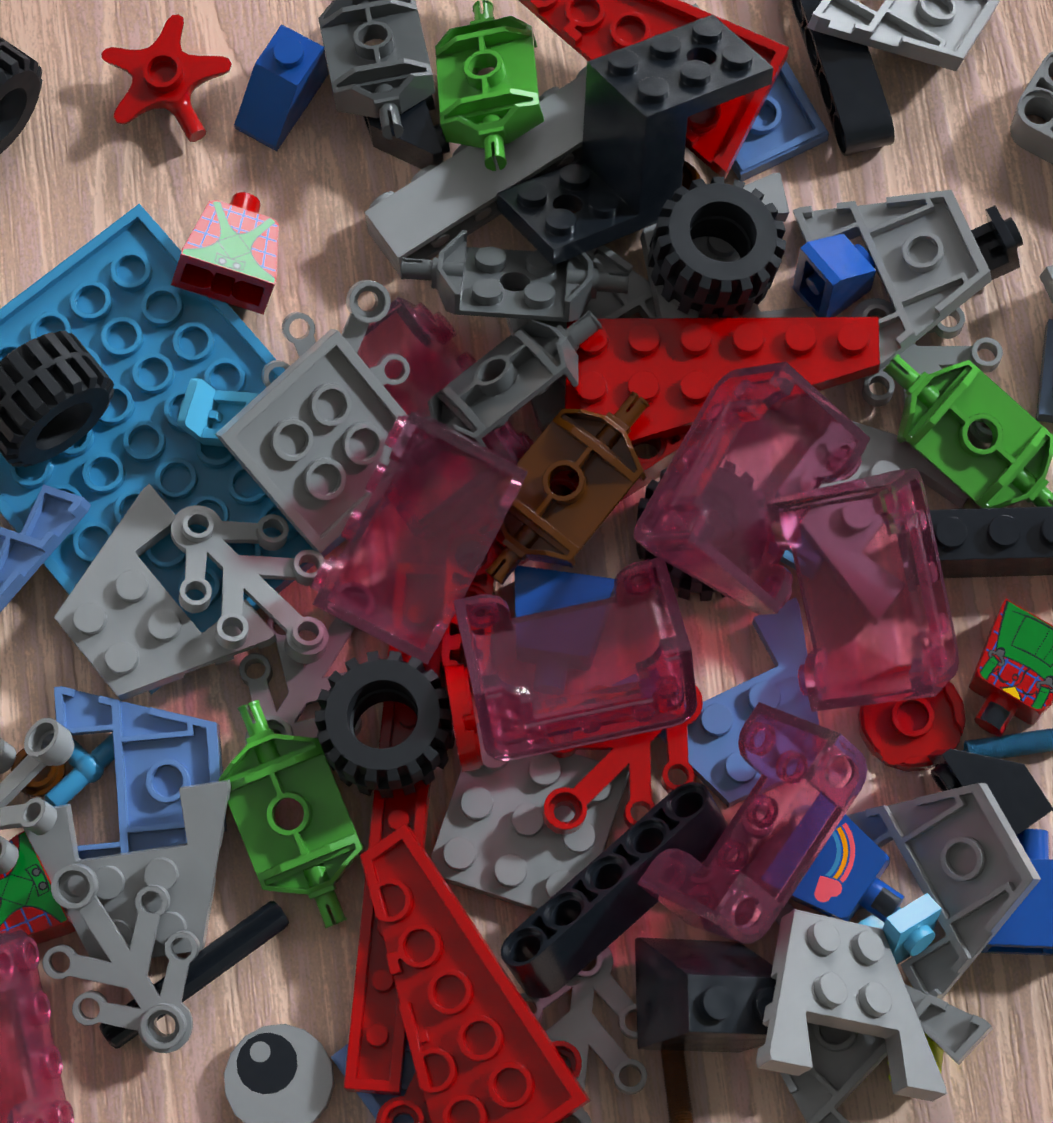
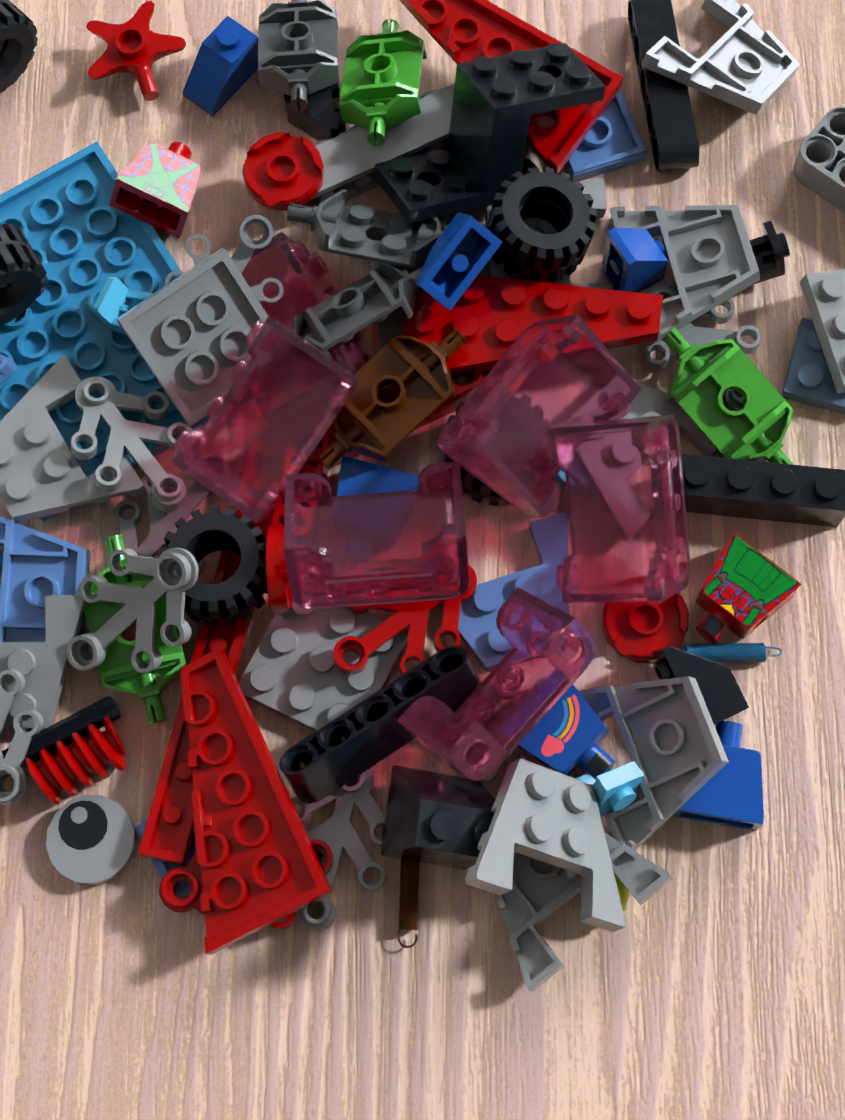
camera: 10 degrees right, 0 degrees up
(250, 986) = (78, 762): none -> red piece
(301, 785) = (139, 606): none -> light grey plant
(384, 216) = (283, 171): none -> red tile
(623, 306) = (457, 259): none -> blue slope

